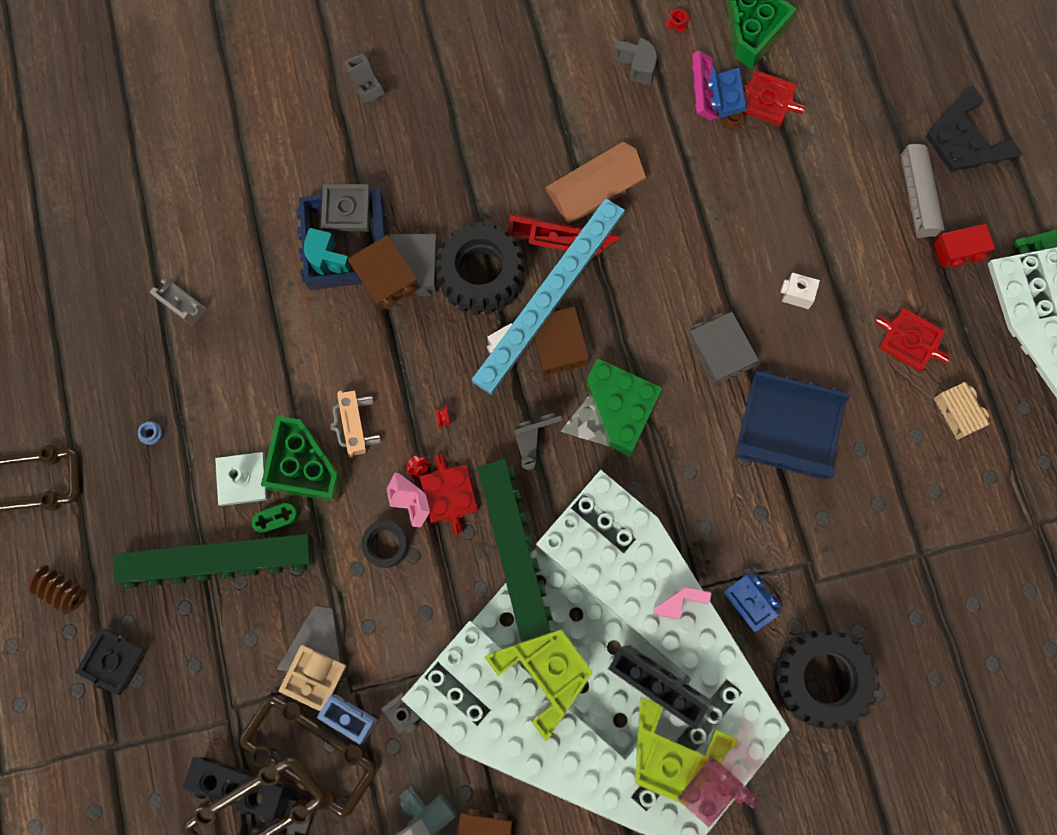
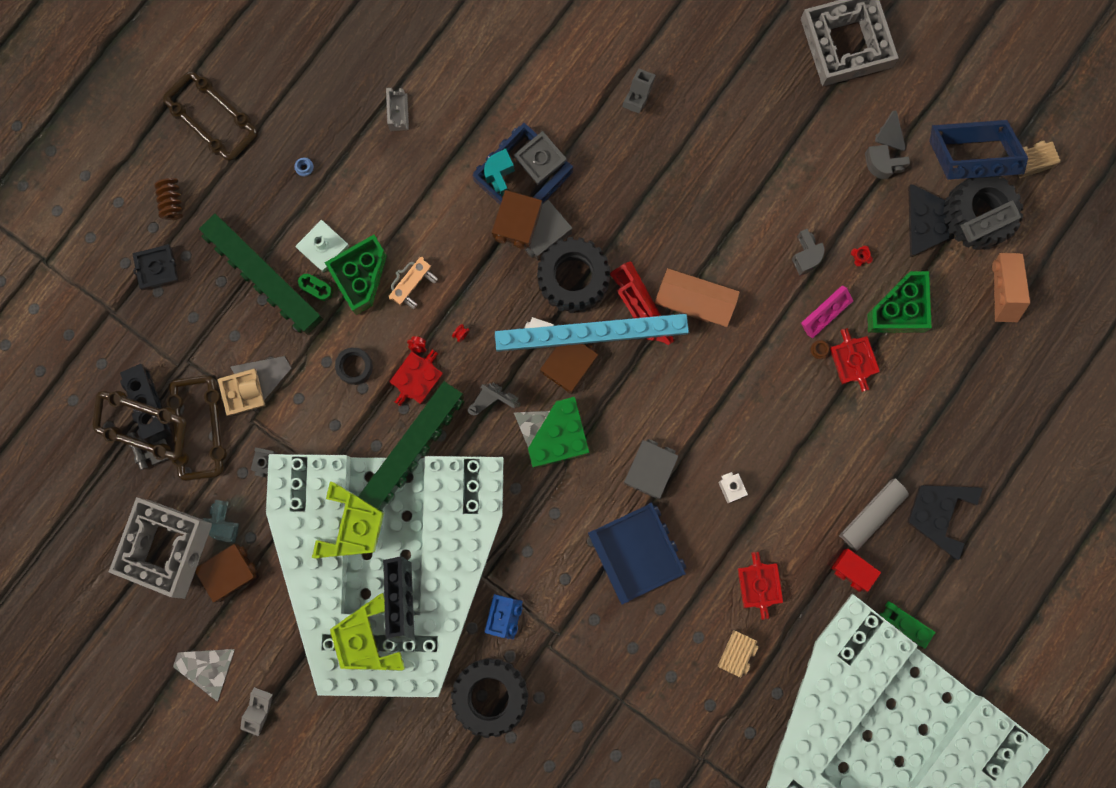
camera: 50 degrees right, 5 degrees up
(347, 719) = (234, 432): medium blue brick -> none
(406, 495) = (393, 352): bright pink slope -> none
(673, 606) = (450, 568): bright pink slope -> none
(713, 791) = (361, 678): clear pink bracket -> none
(728, 92) = (832, 330): blue bracket -> none

